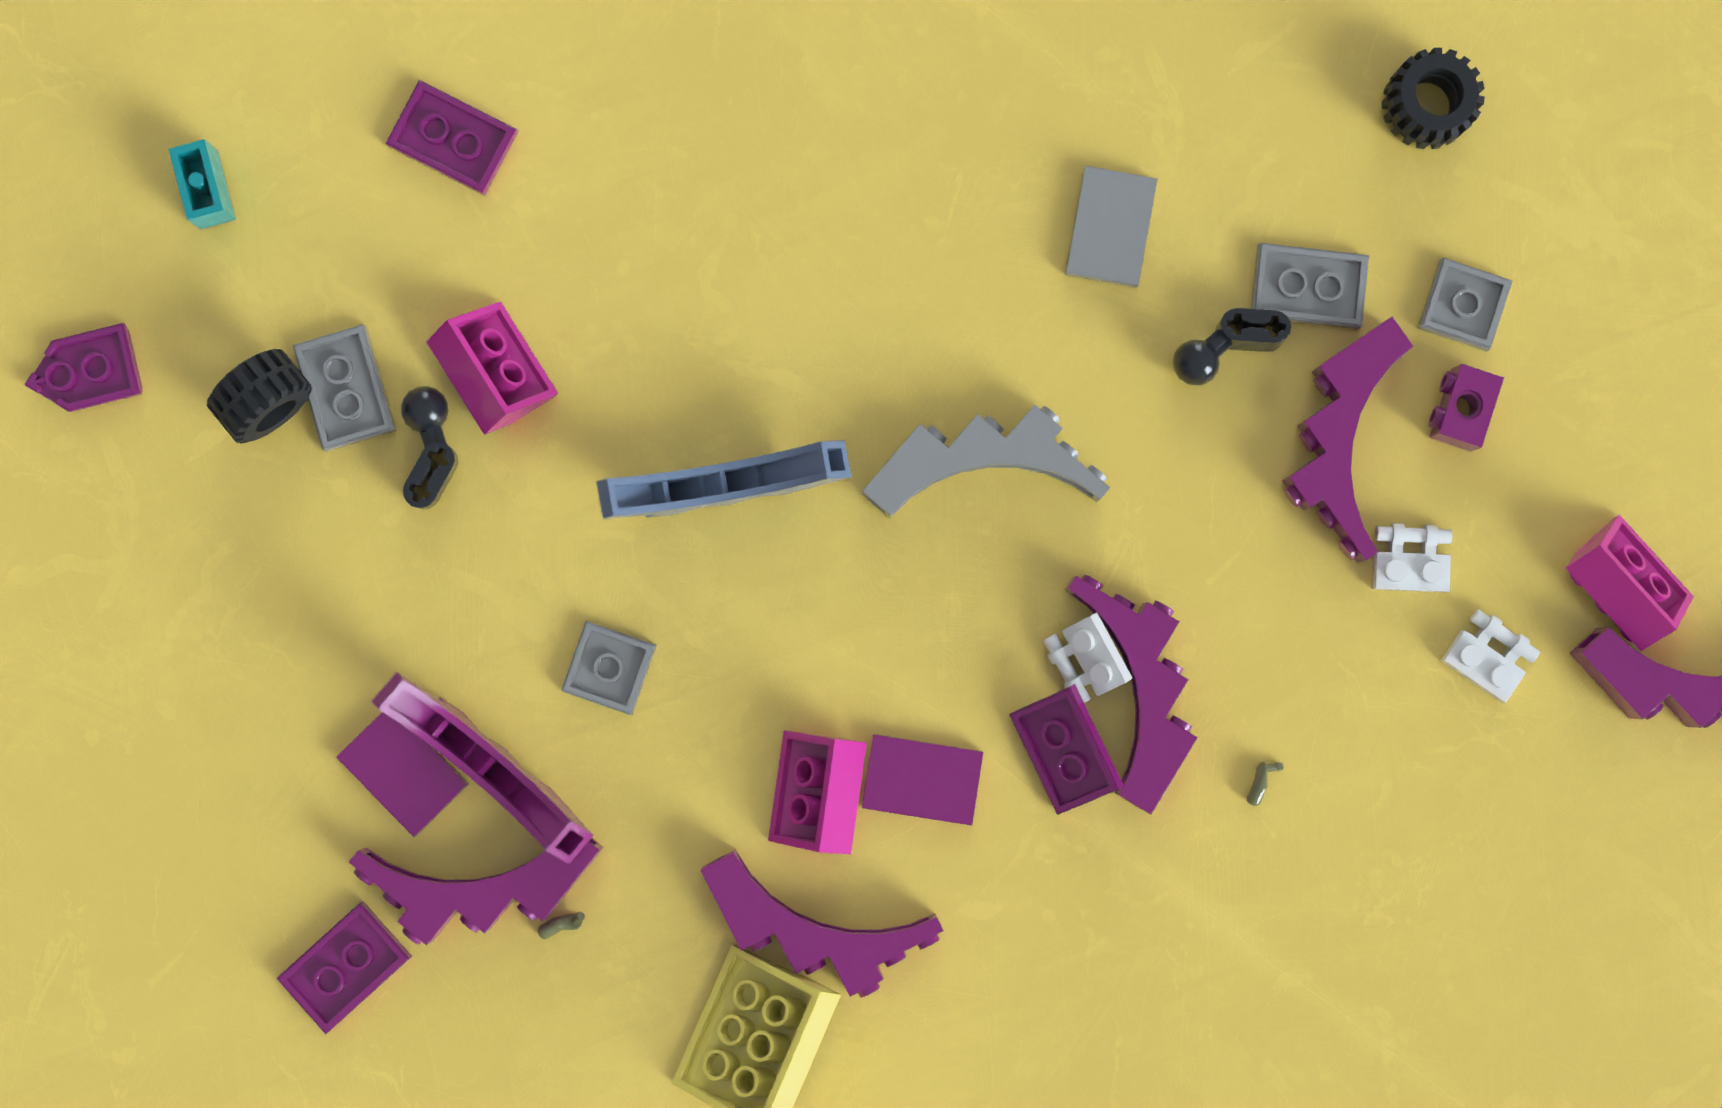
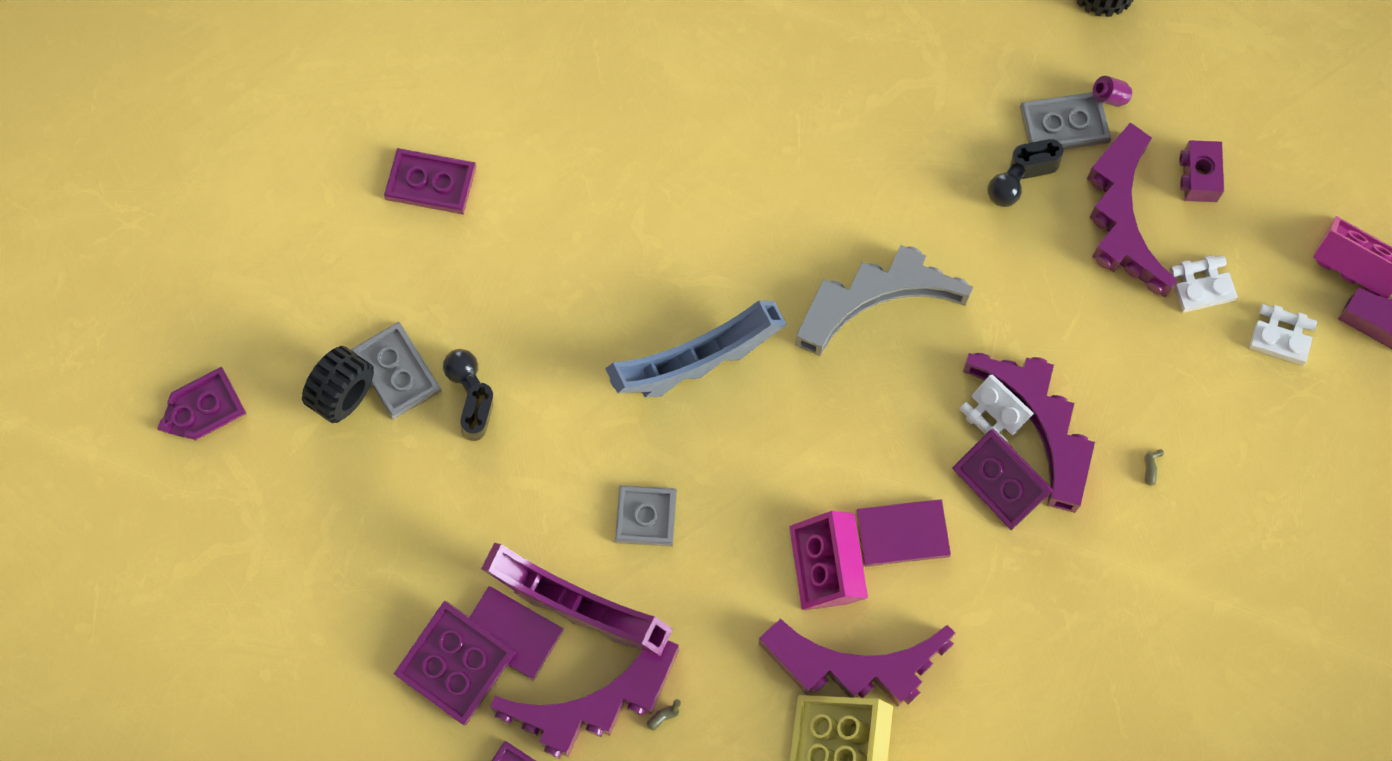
camera: 10 degrees left, 15 degrees down
(202, 184) = (259, 254): teal brick -> none
(322, 792) = (455, 662): none -> magenta plate
(491, 366) = (500, 325): dark pink slope -> none
(1111, 226) = (914, 119): light grey tile -> none
(1384, 263) = (1112, 91): none -> magenta brick
(1464, 304) = (1176, 106): light grey tile -> none

